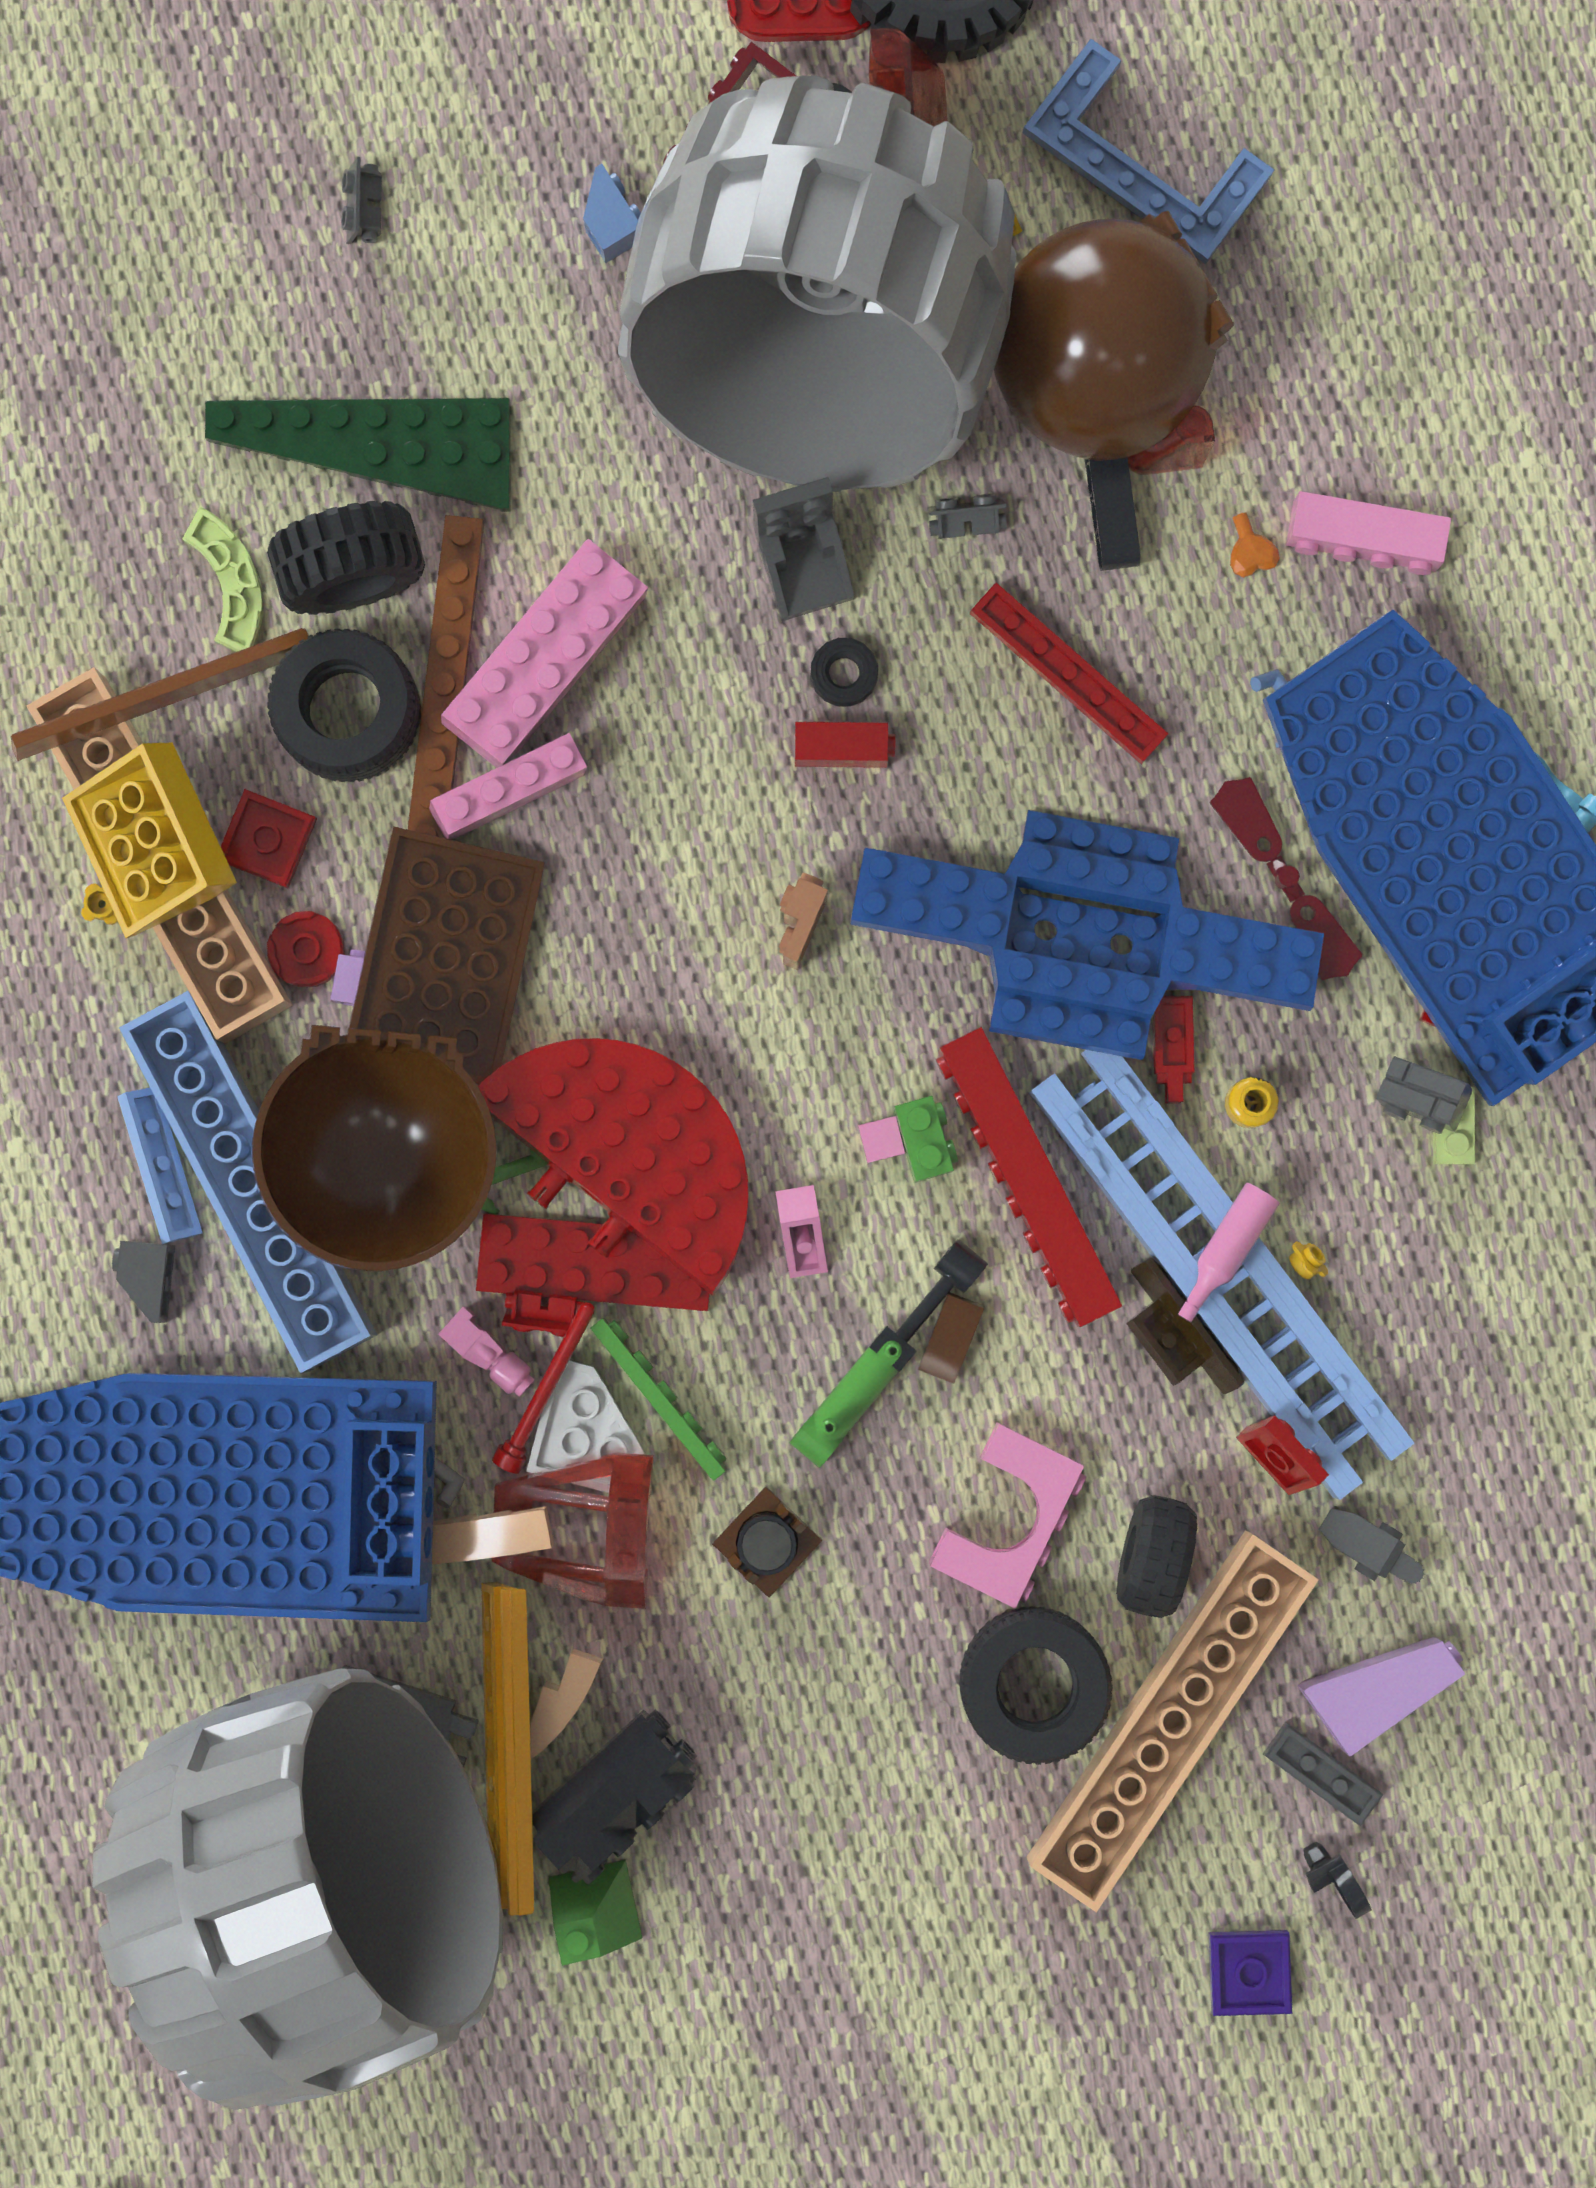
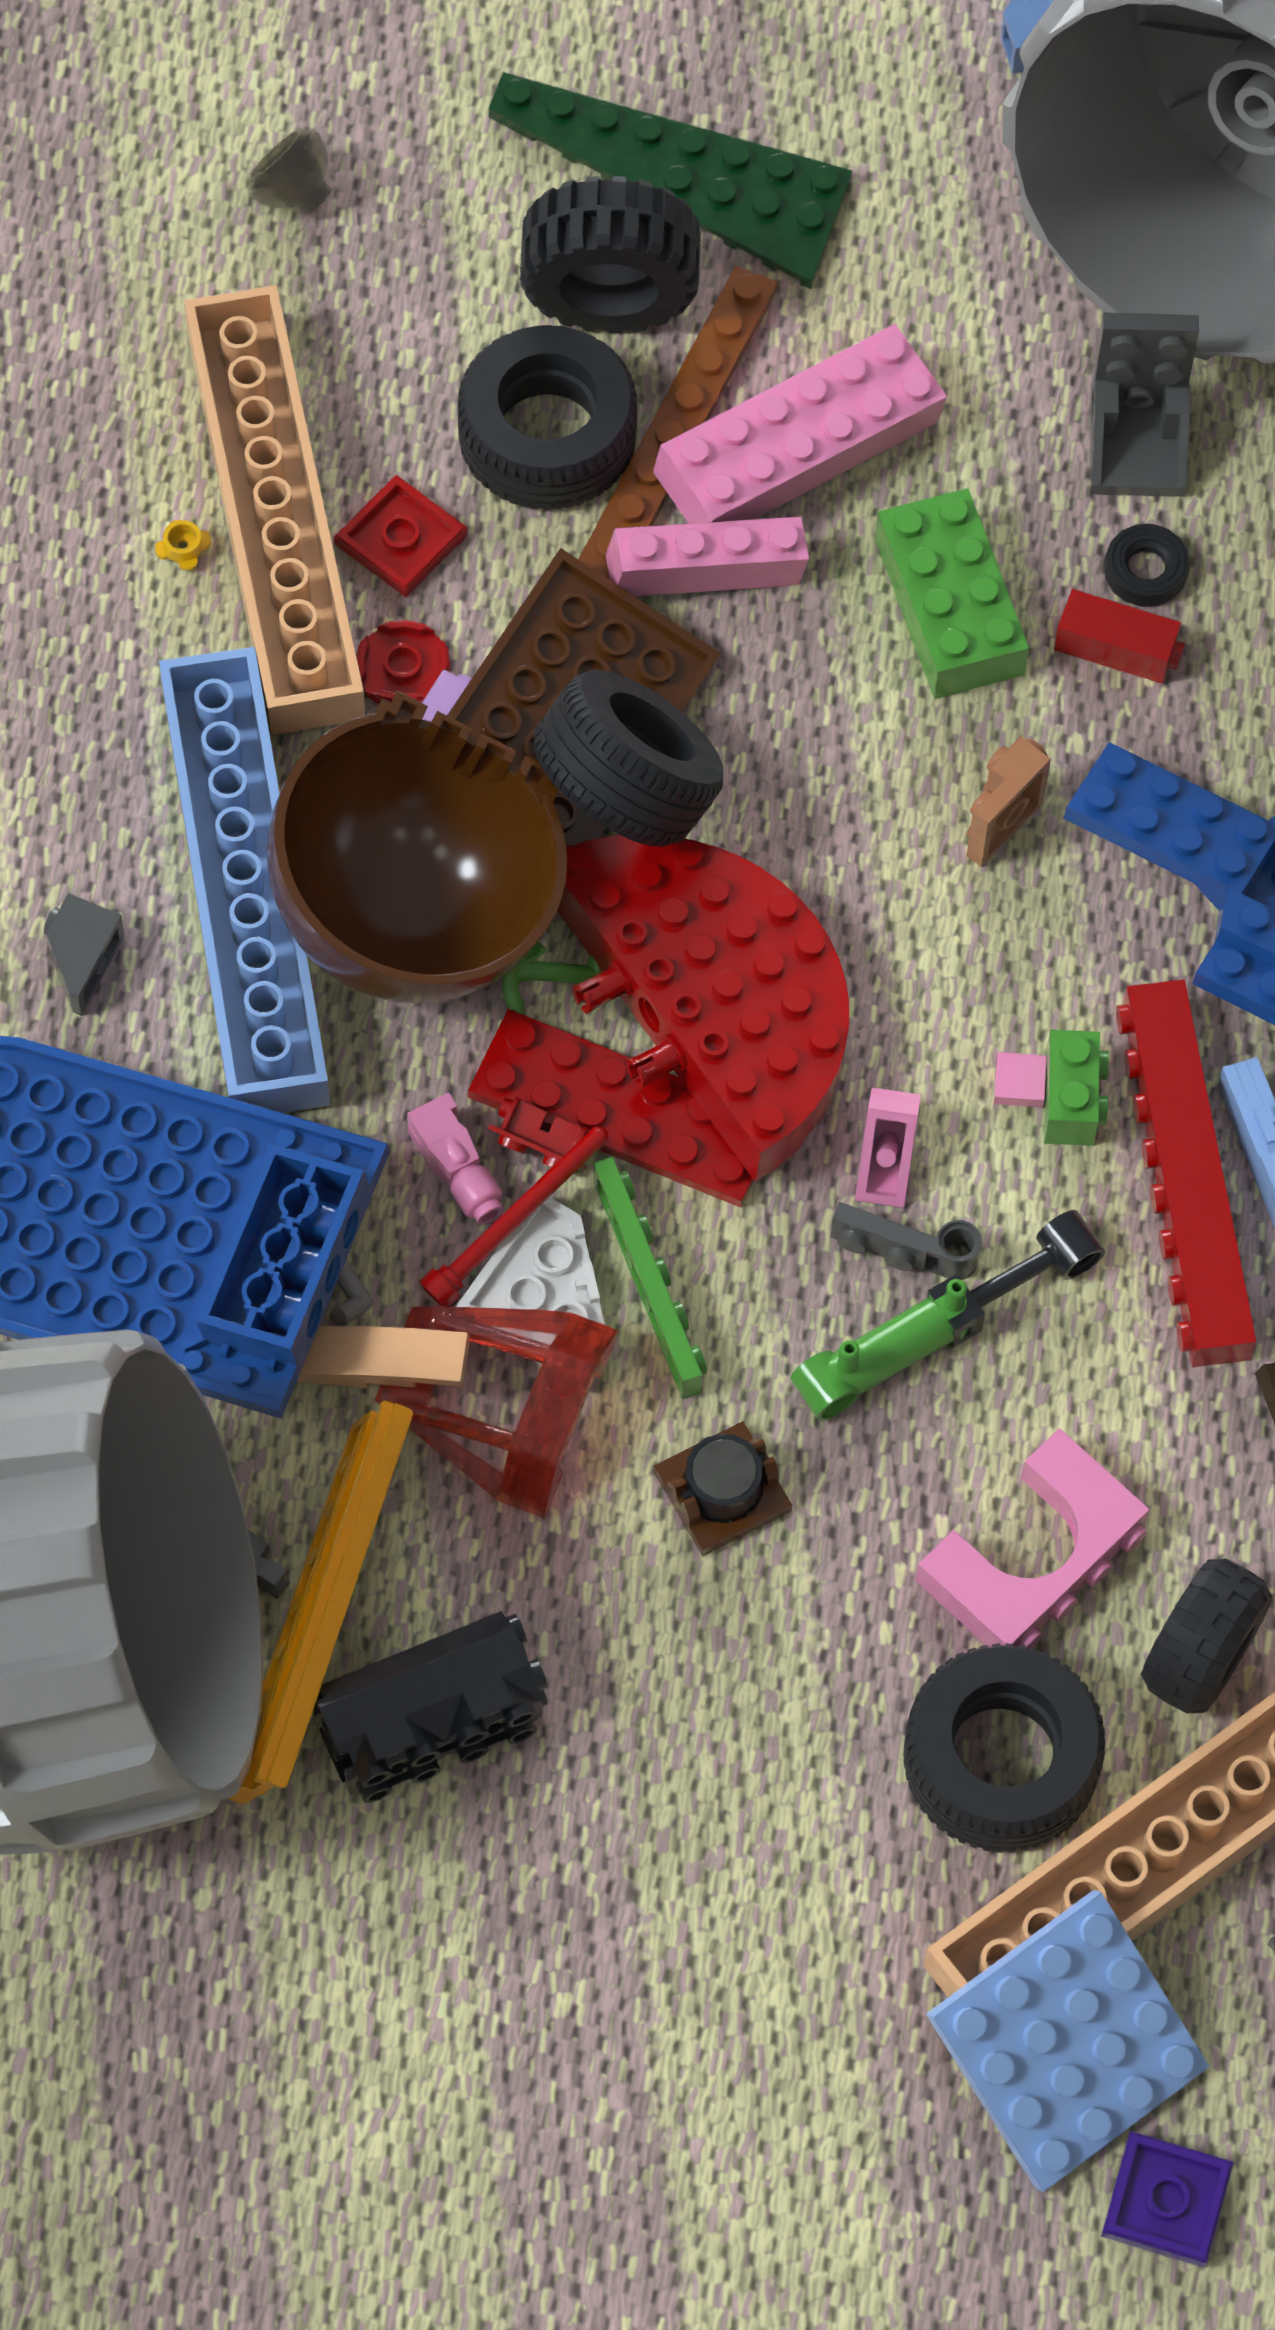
camera: 15 degrees right, 20 degrees down
(70, 553) = (292, 173): none -> clear smoke piece
(148, 838) = (273, 468): yellow slope -> none
(153, 696) = (328, 330): dark orange tile -> none
(159, 1166) = (143, 835): light blue plate -> none
(238, 579) = (469, 262): yellowish green tile -> none
(492, 1035) = (628, 758): none -> black tyre
(560, 1702) = (403, 1586): light nougat slope -> none
(594, 1916) = (352, 1850): bright green slope -> none
(703, 751) = (951, 593): none -> bright green brick
(837, 1311) = (905, 1246): none -> dark grey plate
(951, 1337) = (1031, 1324): reddish brown slope -> none
(1148, 1895) = (1067, 2040): none -> light blue plate

